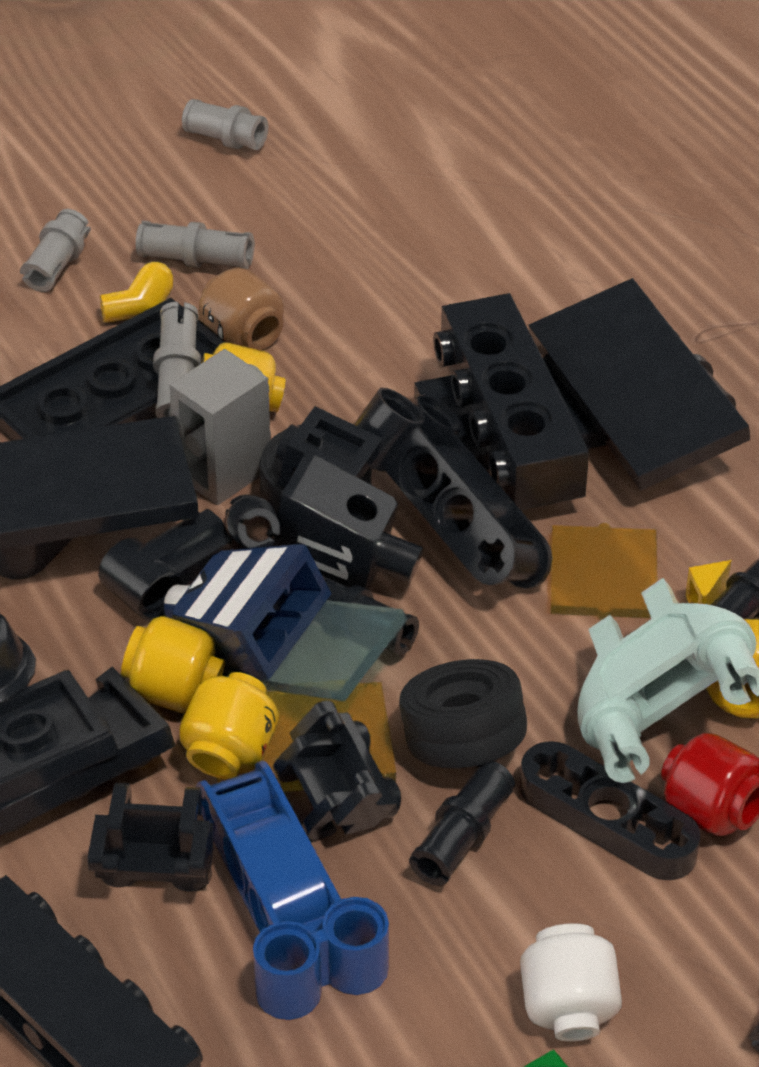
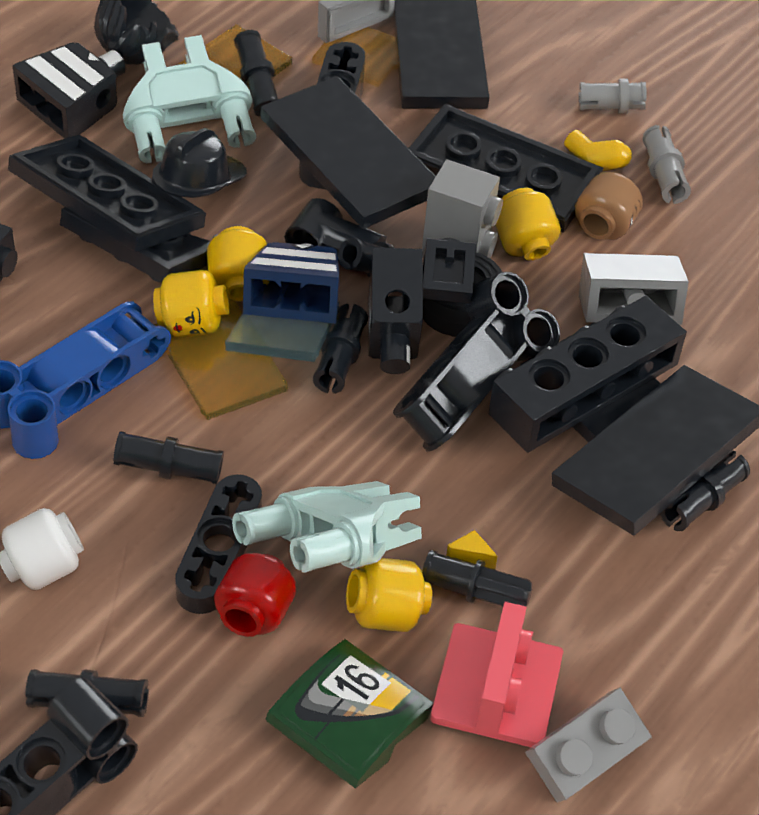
camera: 65 degrees right, 5 degrees up
(152, 842) = (75, 289): black piece -> none
(176, 351) = (534, 175): light grey pin -> none
(337, 773) = (172, 370): black piece -> none
(389, 330) = (624, 278): none -> light grey brick
(463, 713) = (258, 426): black tyre -> none
(602, 570) = (466, 490): clear yellow piece -> none

